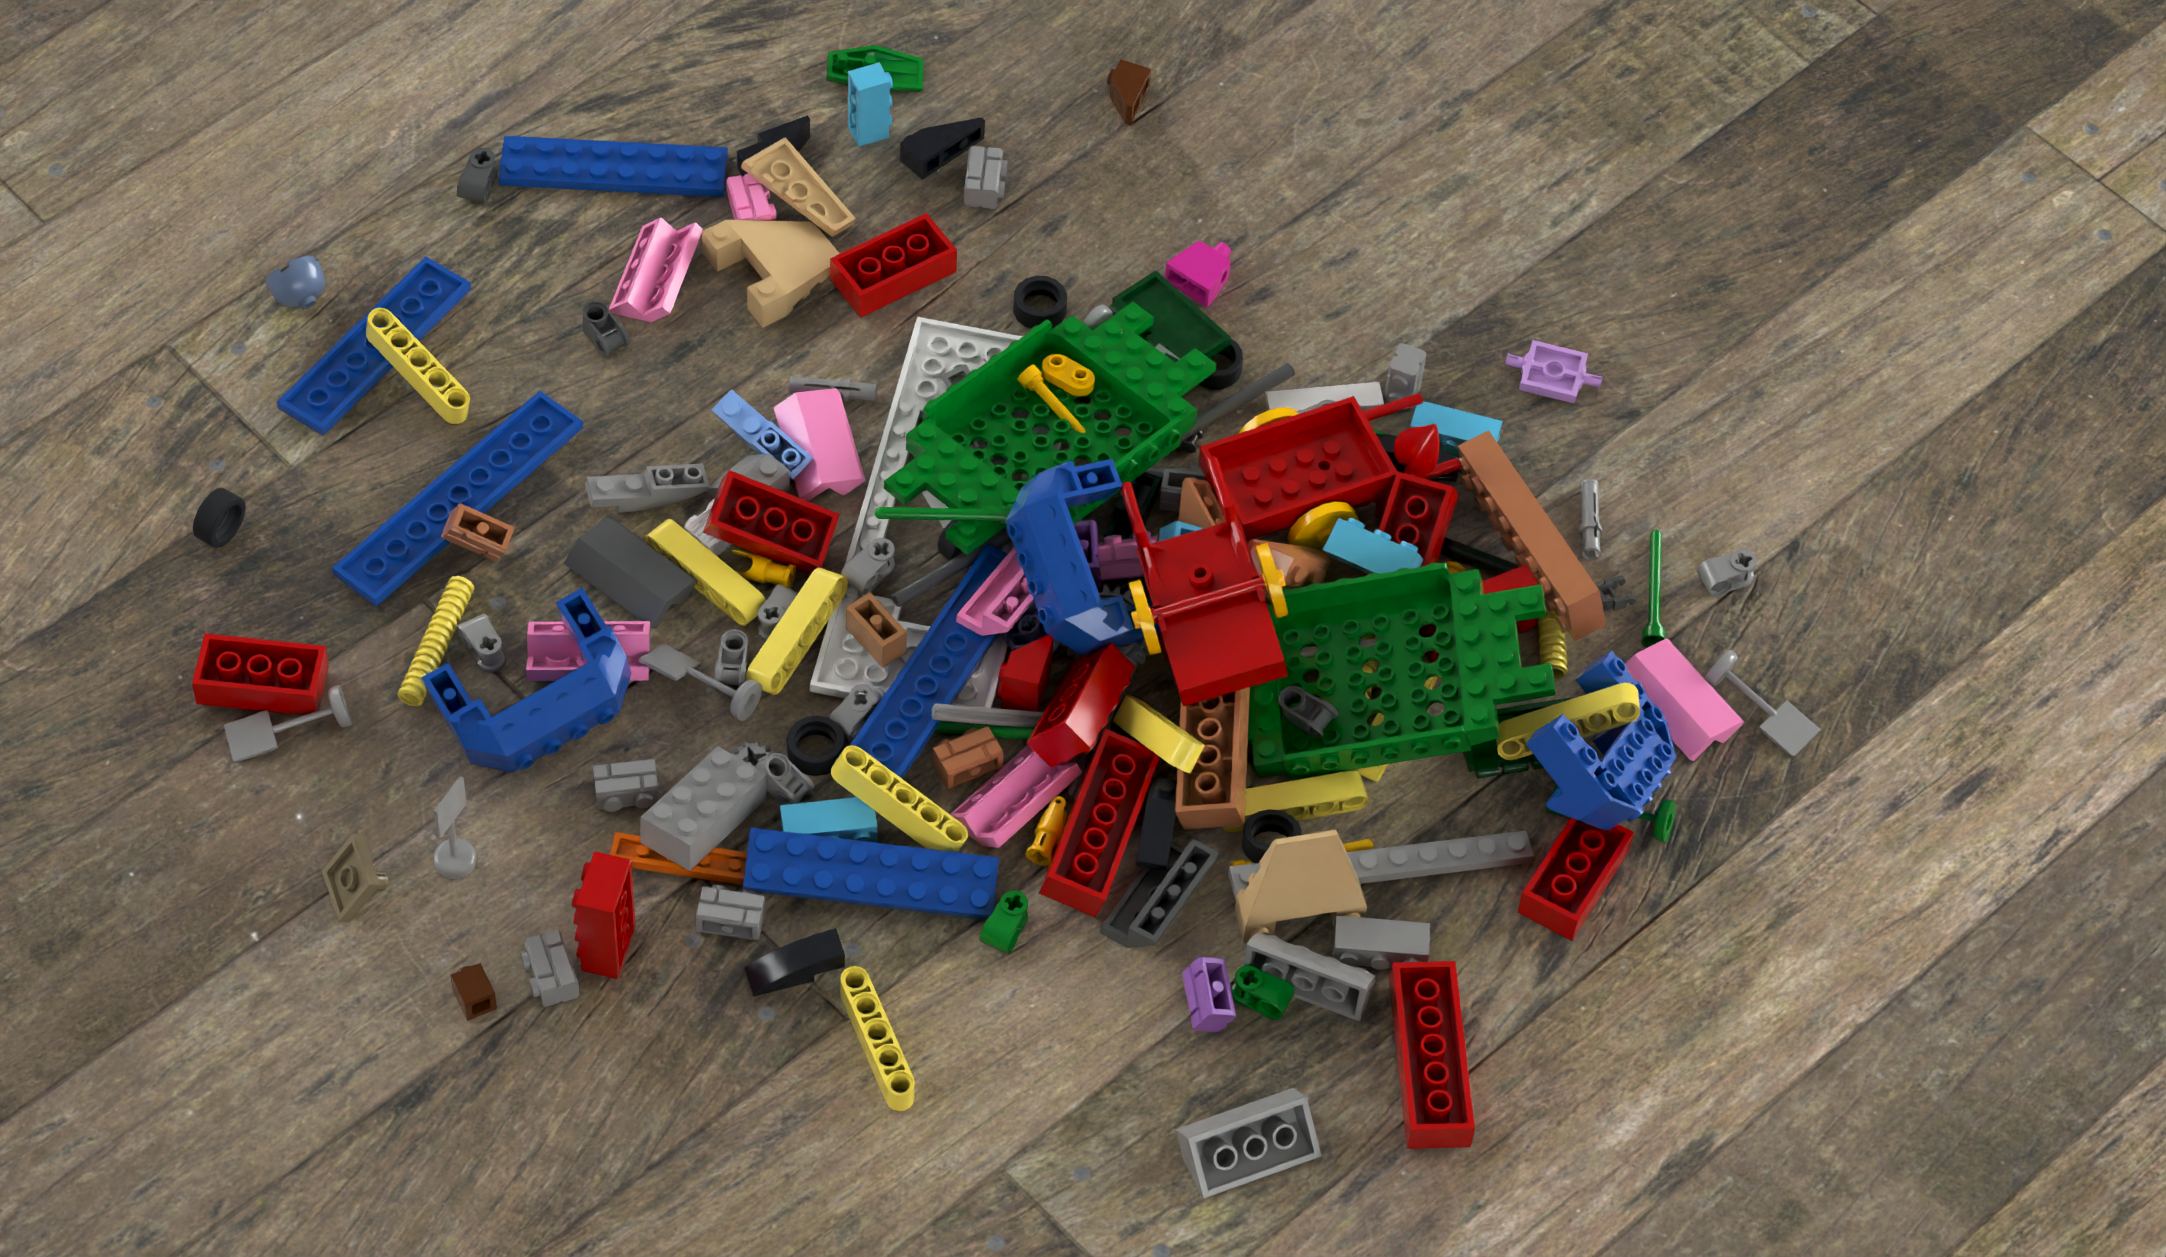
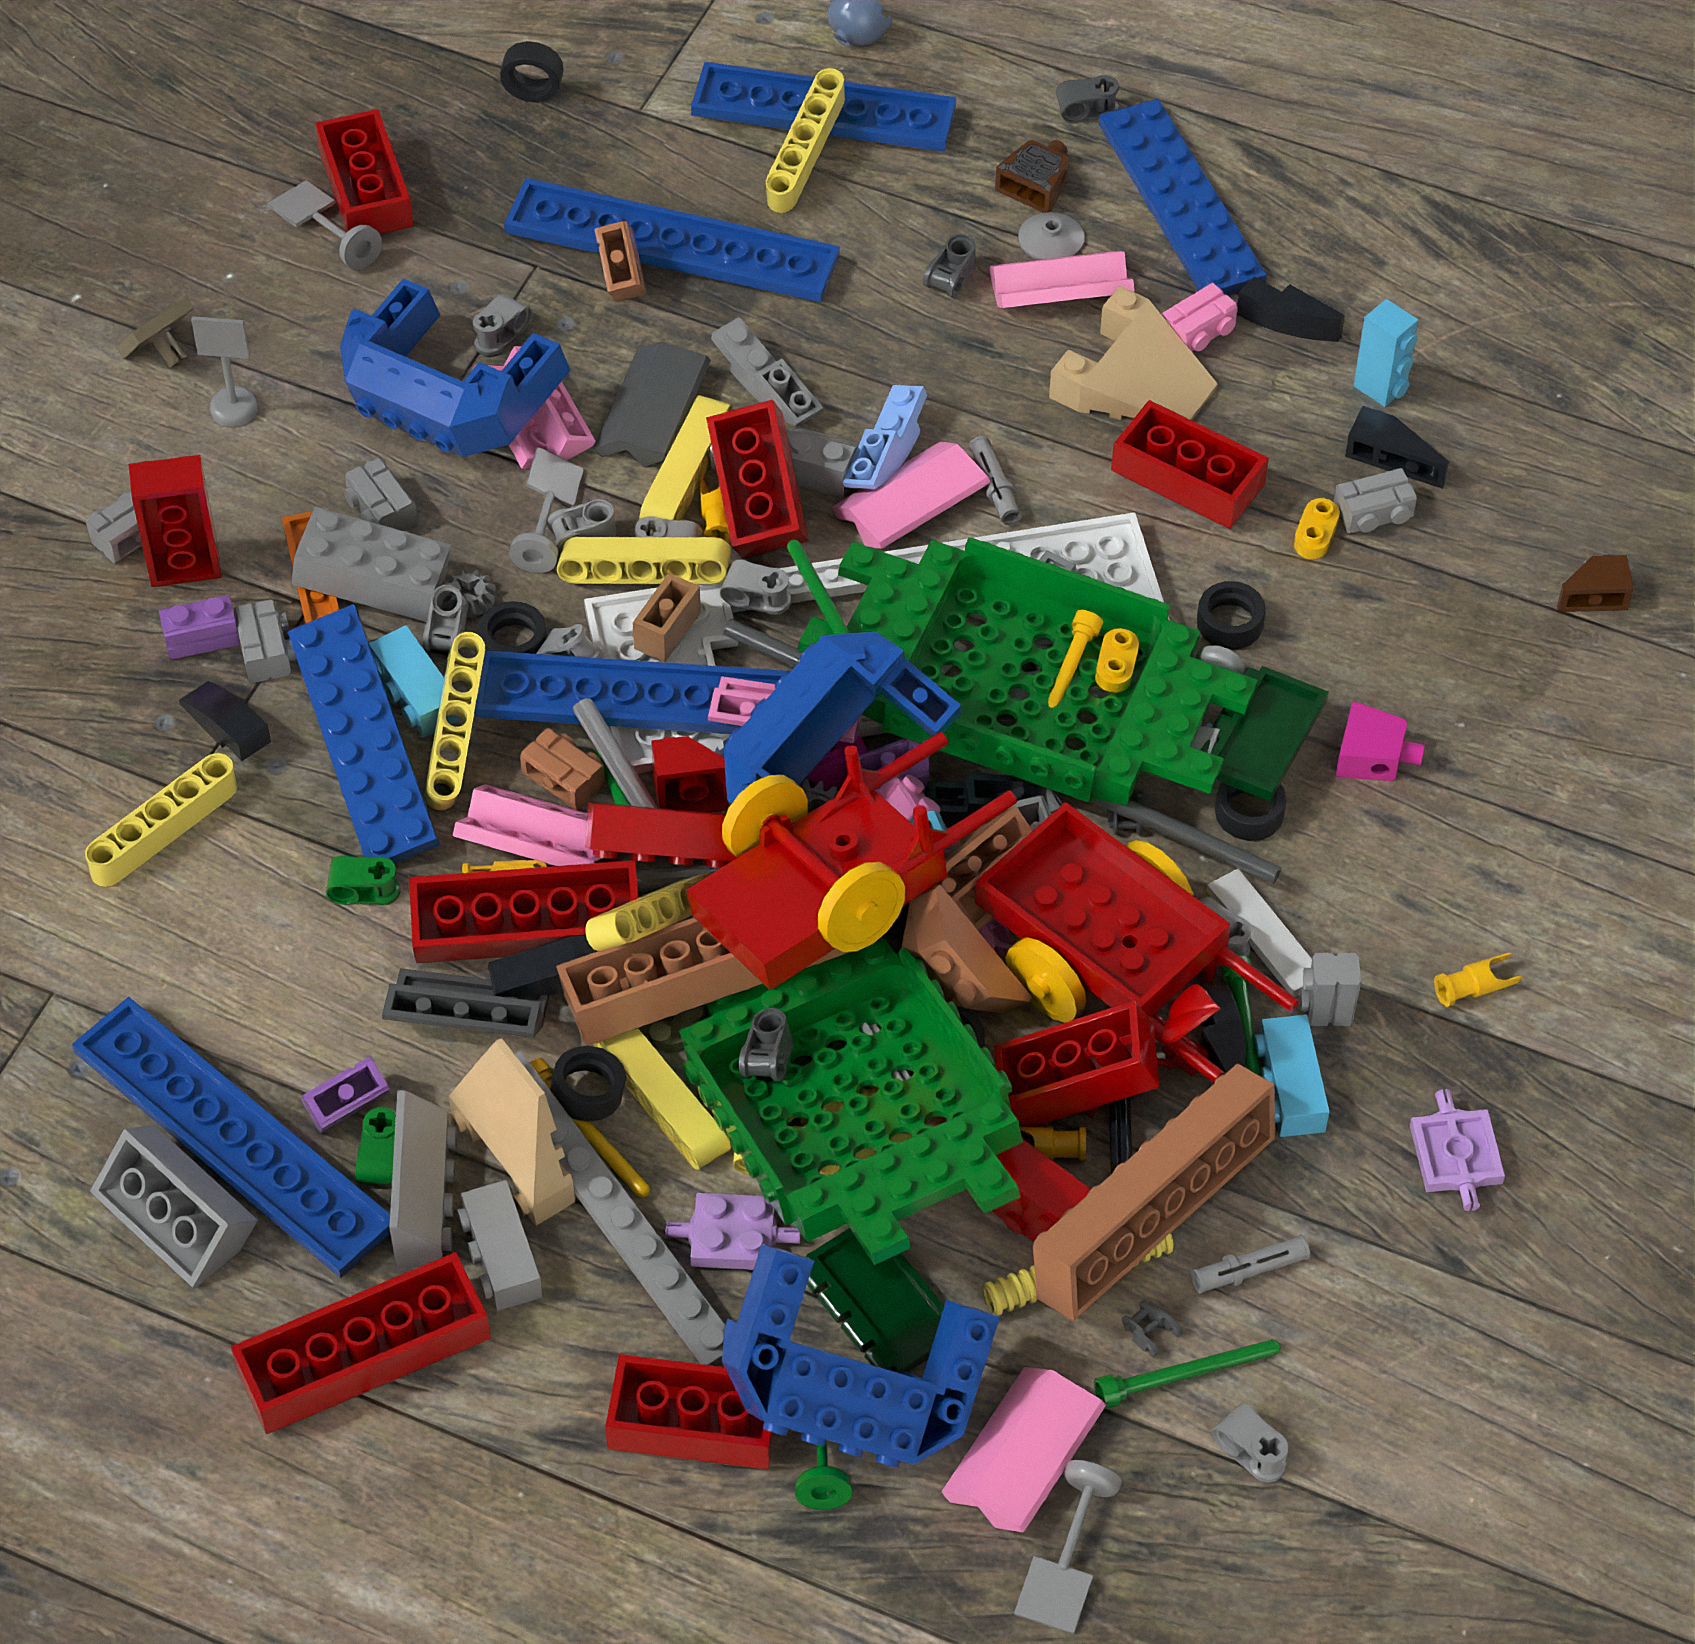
camera: 70 degrees right, 0 degrees up
(436, 639) = (487, 287): light yellow piece -> none
(473, 991) = (73, 474): reddish brown brick -> none
(540, 240) = (1034, 174): none -> reddish brown torso
(600, 261) = (1051, 236): none -> light grey dish
(694, 951) = (199, 627): none -> medium lavender brick
(795, 181) = (1245, 339): tan wing -> none
(903, 68) = (1468, 358): green piece -> none
(980, 219) = (1319, 522): none -> yellow plate
(1199, 1085) = (234, 1136): none -> blue plate
(1369, 550) = (1021, 1026): medium azure brick -> none
(1423, 305) = (1473, 980): none -> yellow piece
(1429, 802) = (730, 1230): none -> lavender plate
(1590, 714) = (889, 1318): light yellow beam -> none

